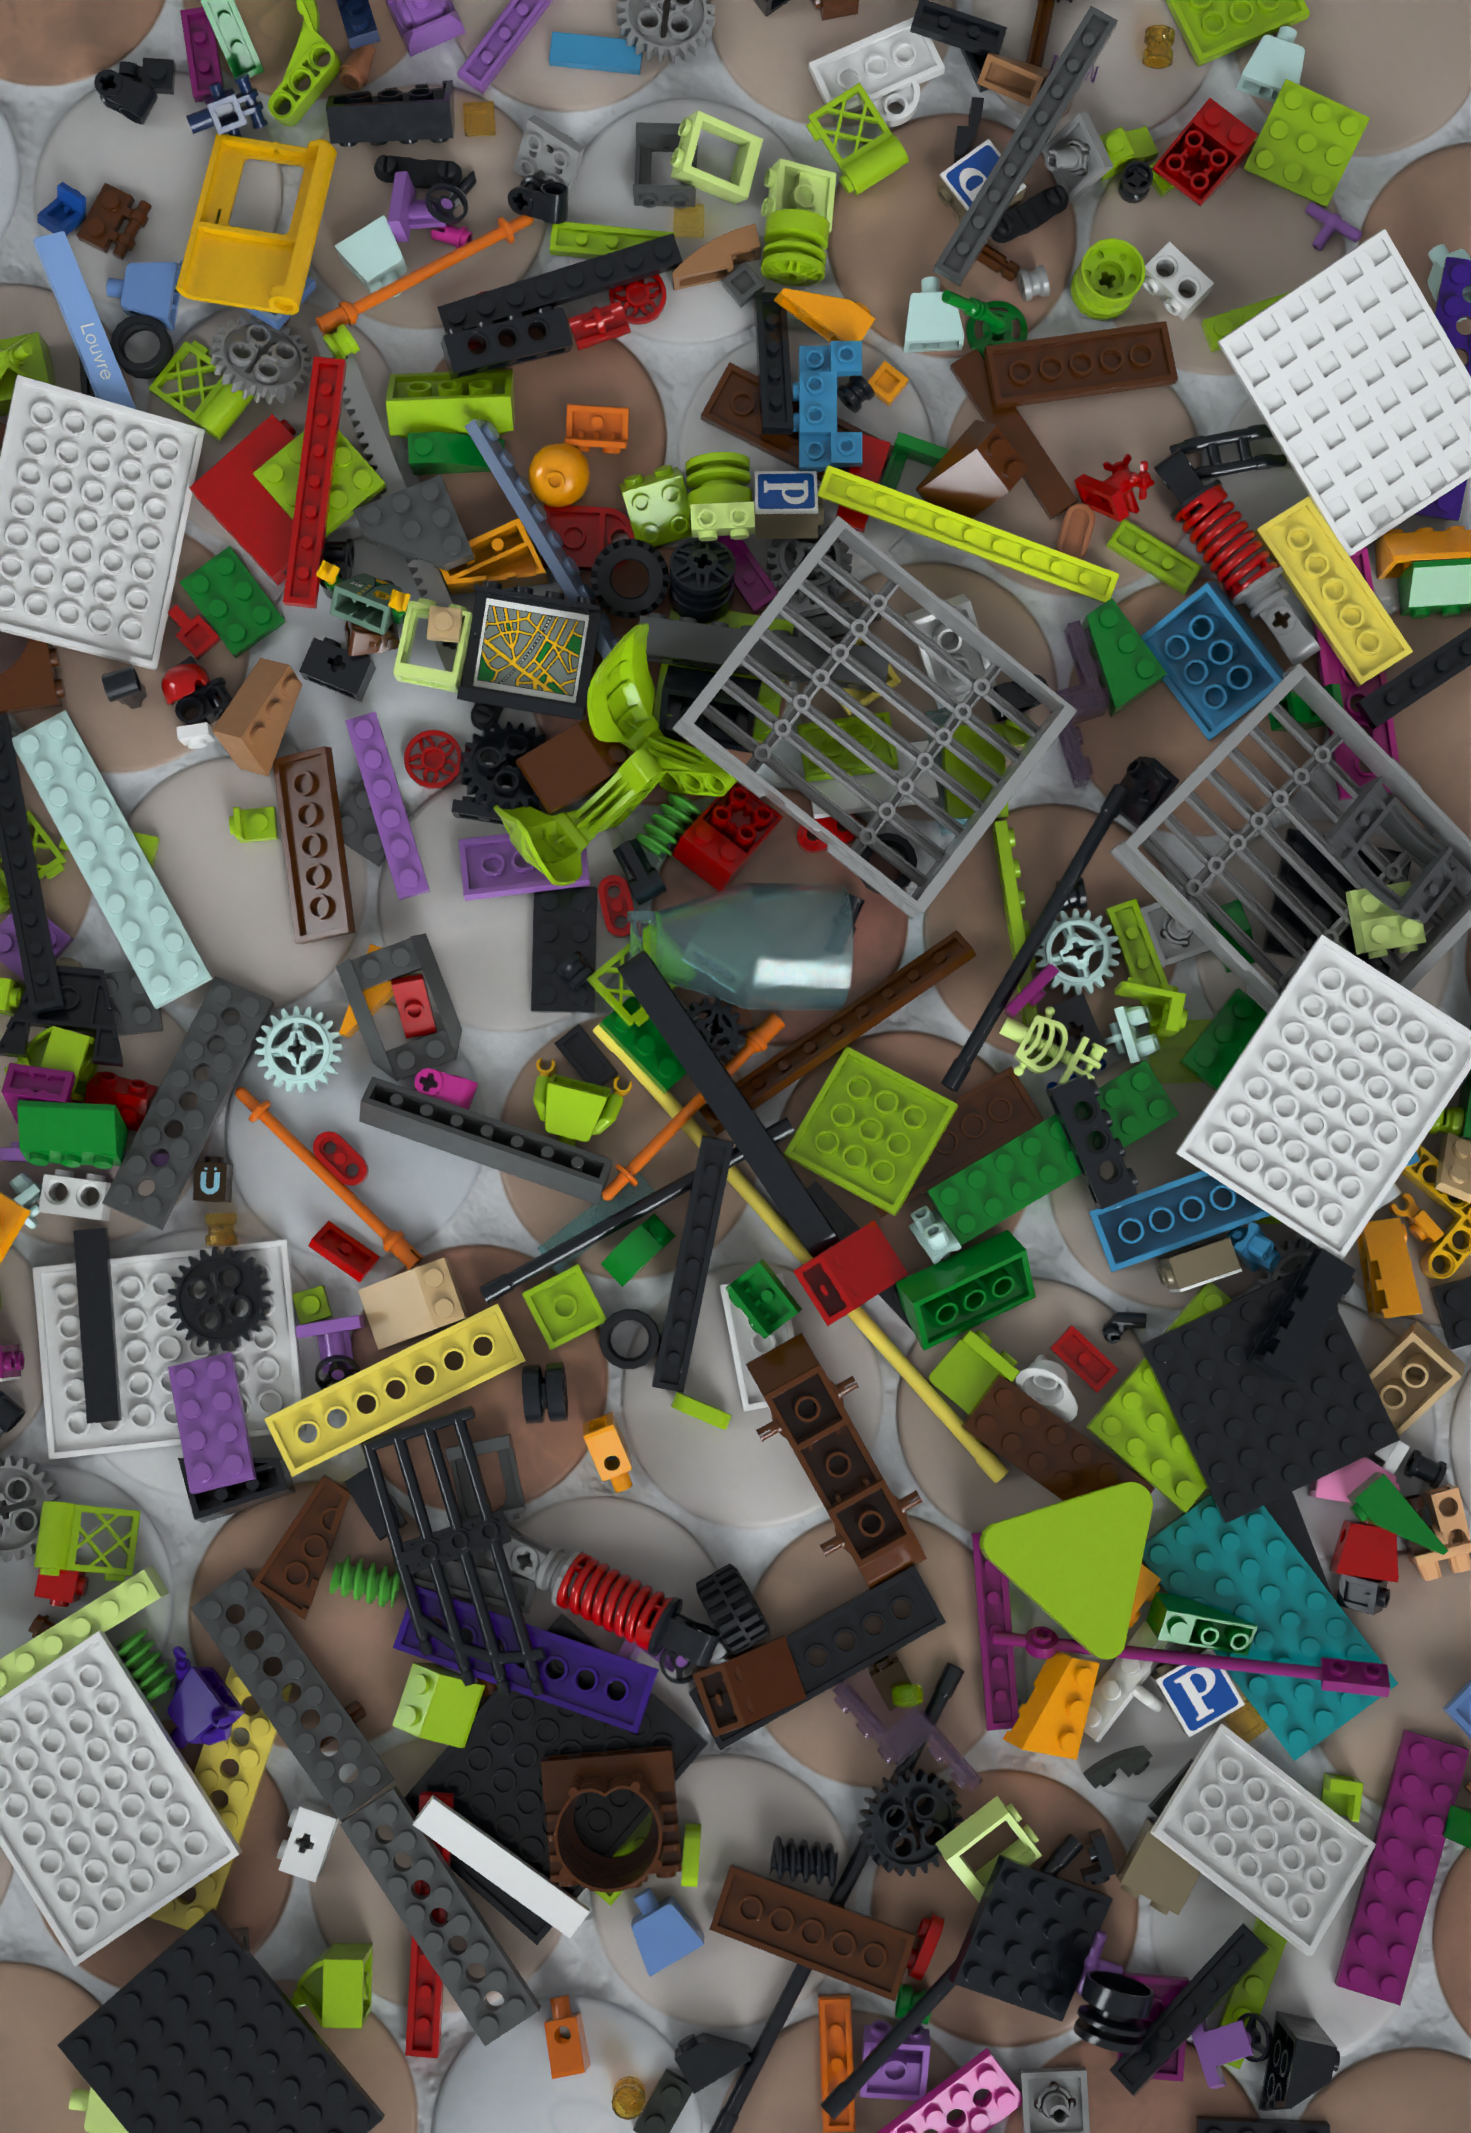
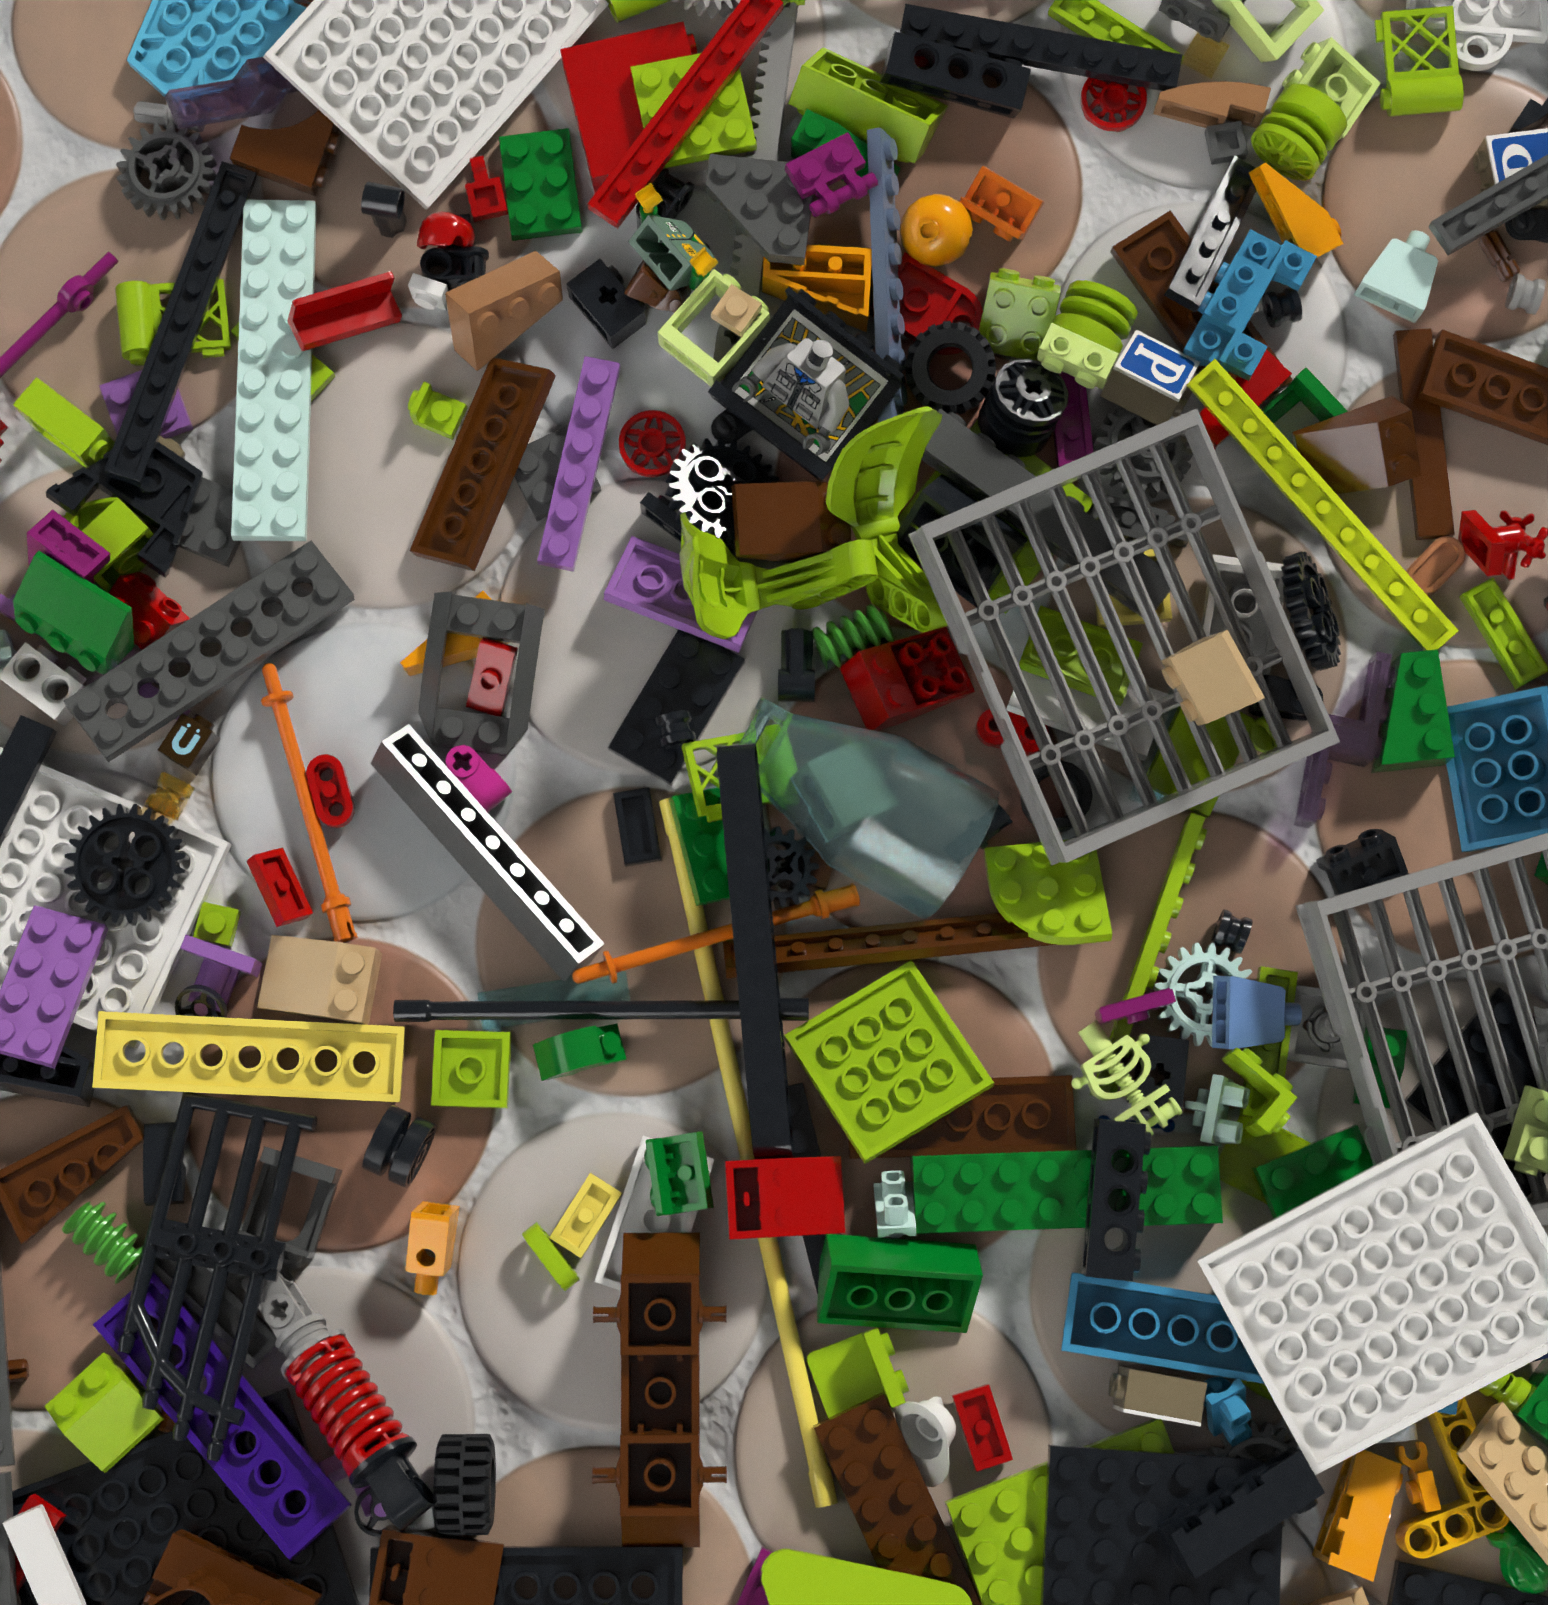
camera: 25 degrees right, 5 degrees down
(140, 786) = (344, 311): none -> red panel
(297, 1035) = (345, 672): light aqua gear -> none
(450, 471) = (826, 166): none -> magenta plate
(528, 651) = (806, 382): none -> light grey torso
(575, 1107) = (596, 868): lime torso -> none
(599, 325) = (1058, 106): red hips -> none
(607, 1348) = (490, 1135): black tyre -> none
(615, 907) = (751, 689): red plate -> none
(692, 1263) = (626, 1097): black plate -> none
(710, 1366) = (585, 1215): none -> light yellow plate
(887, 383) = (1321, 315): light orange plate -> none
(921, 947) = (1046, 900): none -> lime plate
(957, 715) = (1211, 678): none -> tan slope
(990, 607) = (1305, 590): none -> black gear
(996, 324) = (1464, 316): green dish -> none
(1108, 812) = (1022, 1043): black piece -> none
(1117, 949) = (1250, 1013): none -> medium blue torso
(1120, 1322) = (1040, 1411): black arm -> none

